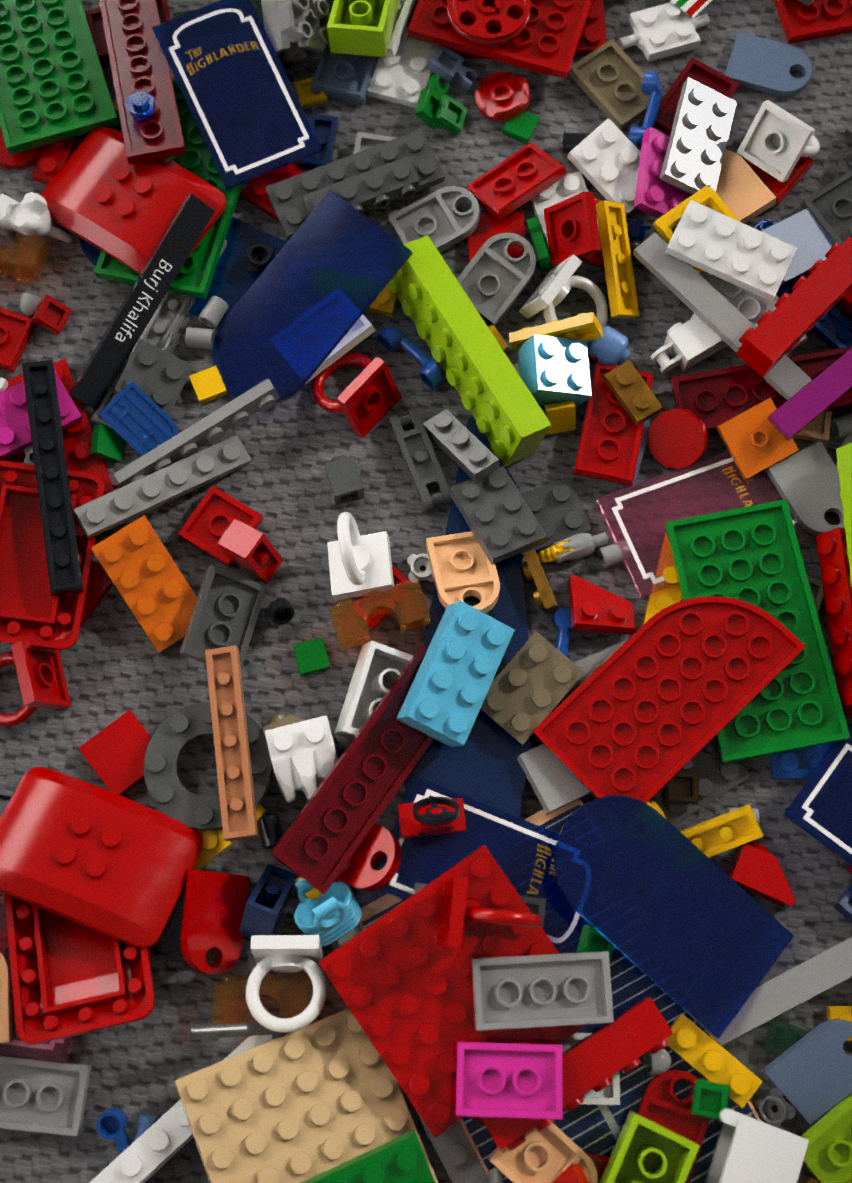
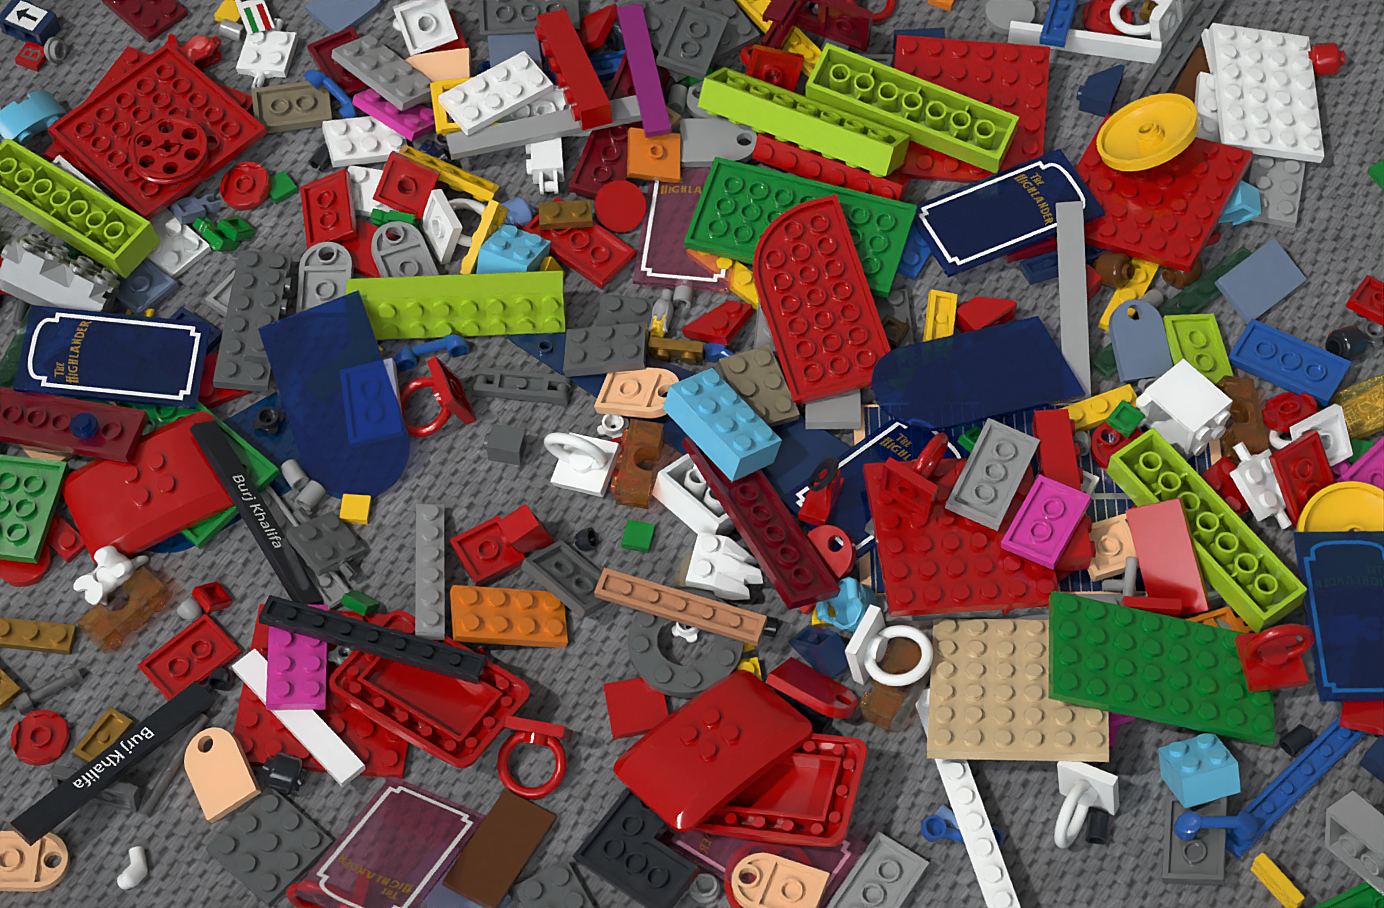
camera: 60 degrees left, 15 degrees down
(138, 419) = (360, 566): blue window -> none
(206, 430) = (403, 538): light grey plate -> none
(461, 445) = (532, 348): flat silver plate -> none

